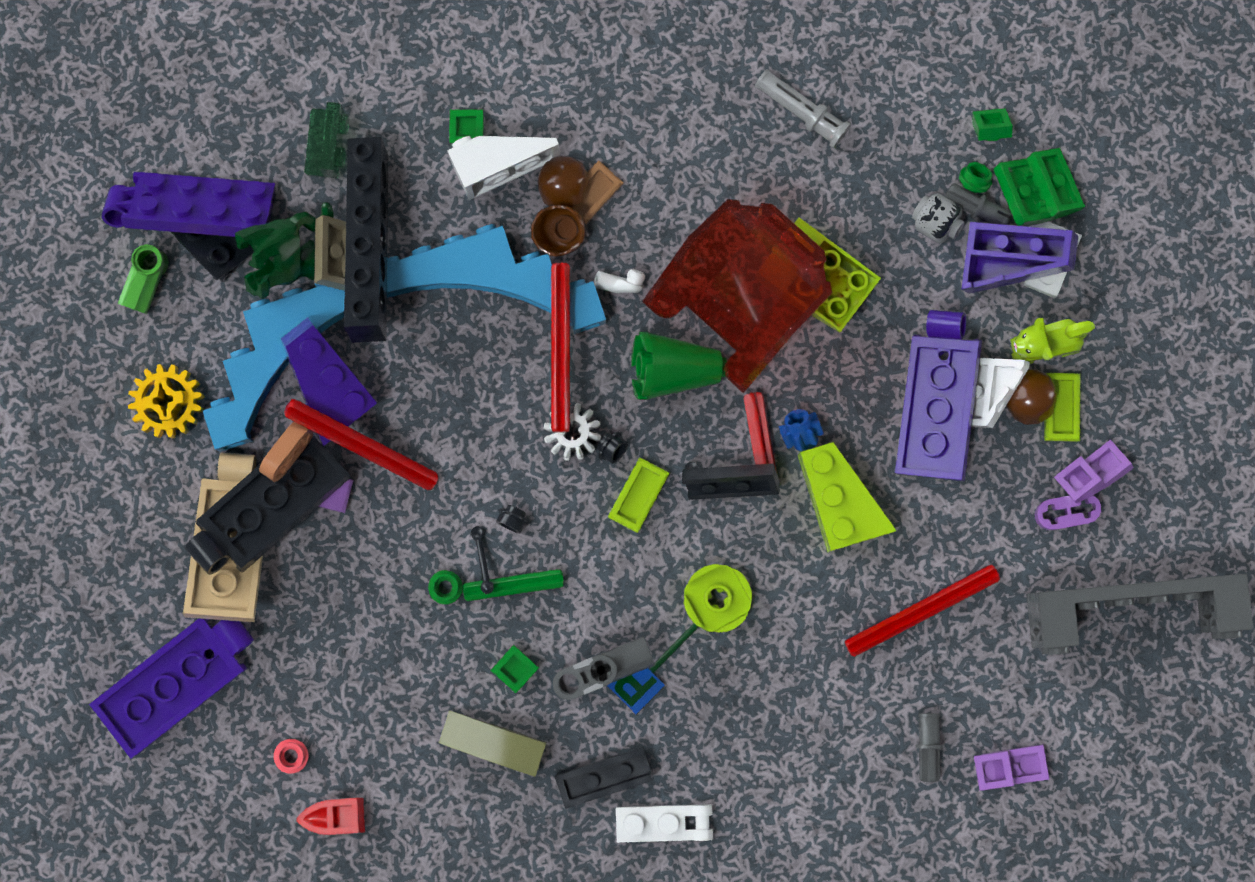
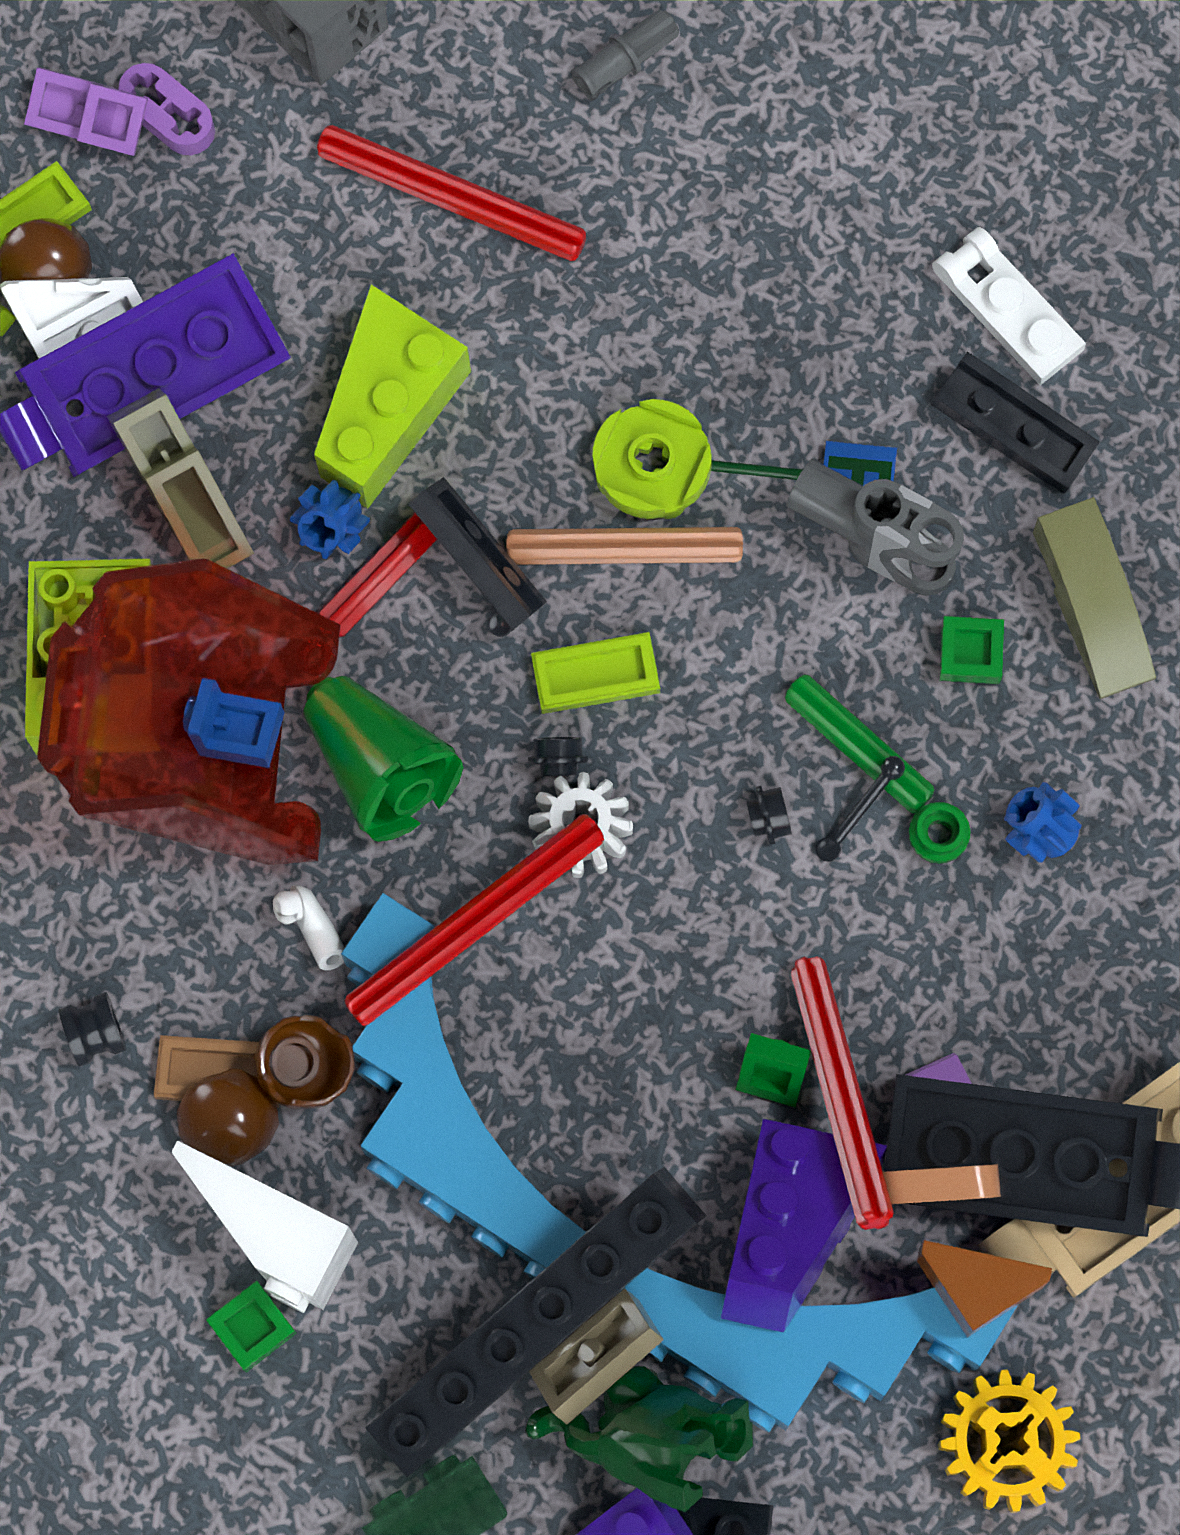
camera: 120 degrees left, 10 degrees down
(230, 434) = (979, 1284): none -> dark orange slope
(398, 429) = (773, 1070): none -> green plate
(411, 633) = (1042, 822): none -> blue gear
(647, 154) = (92, 1029): none -> black wheel
(687, 554) = (625, 545): none -> nougat axle
(733, 311) = (232, 725): none -> blue bracket
(872, 376) = (179, 480): none -> olive slope

